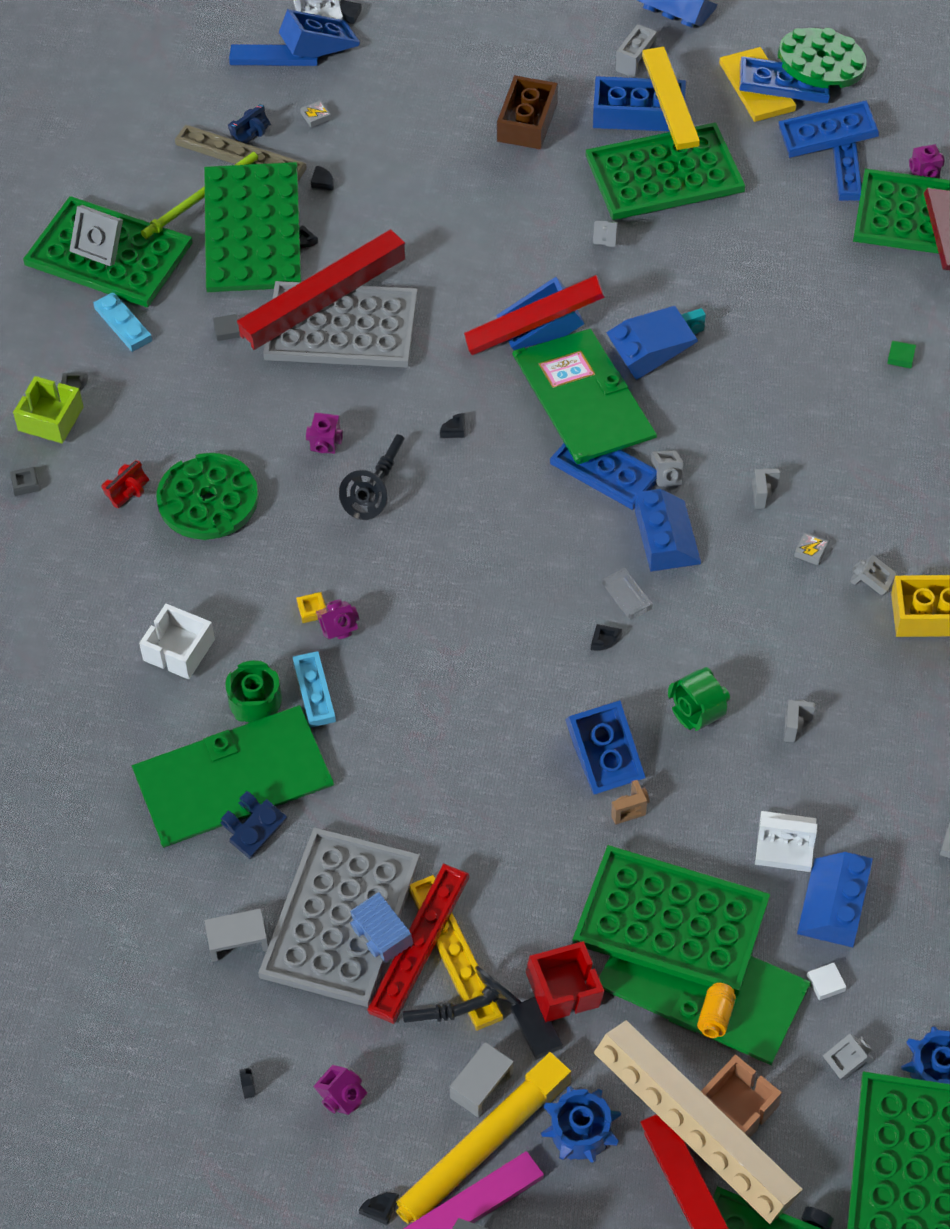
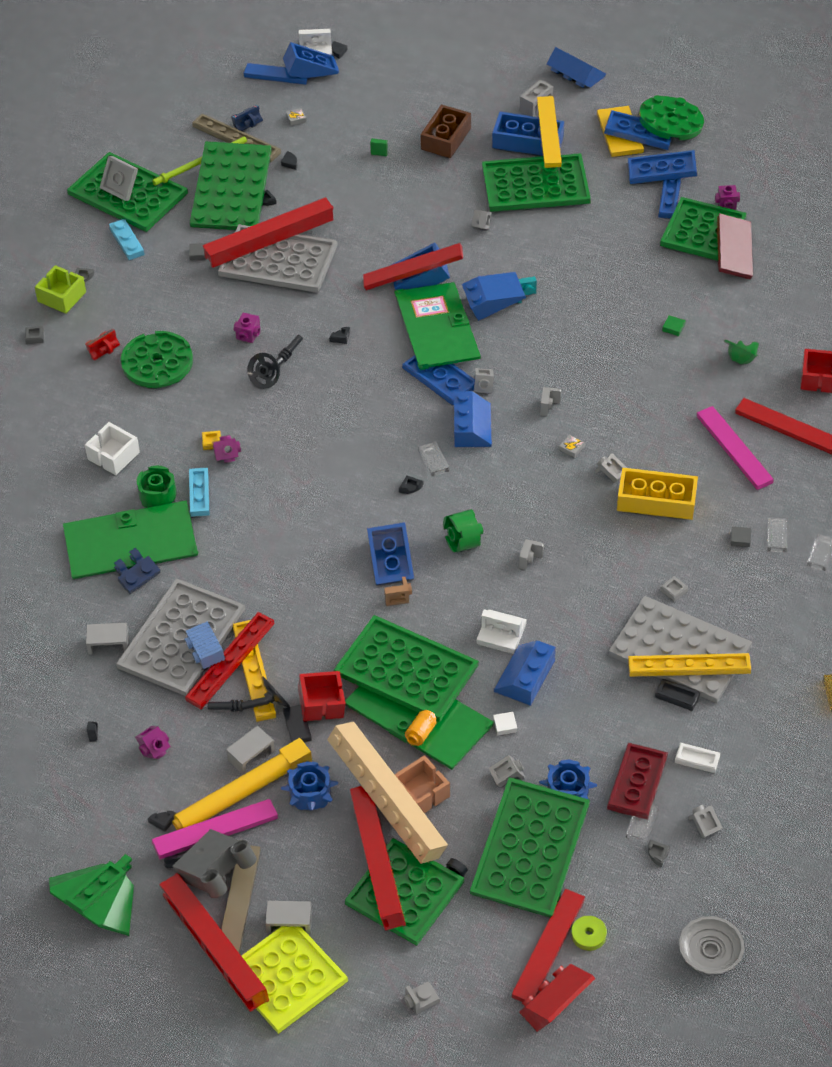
camera: 10 degrees right, 5 degrees down
(441, 145) = (379, 147): none -> green tile

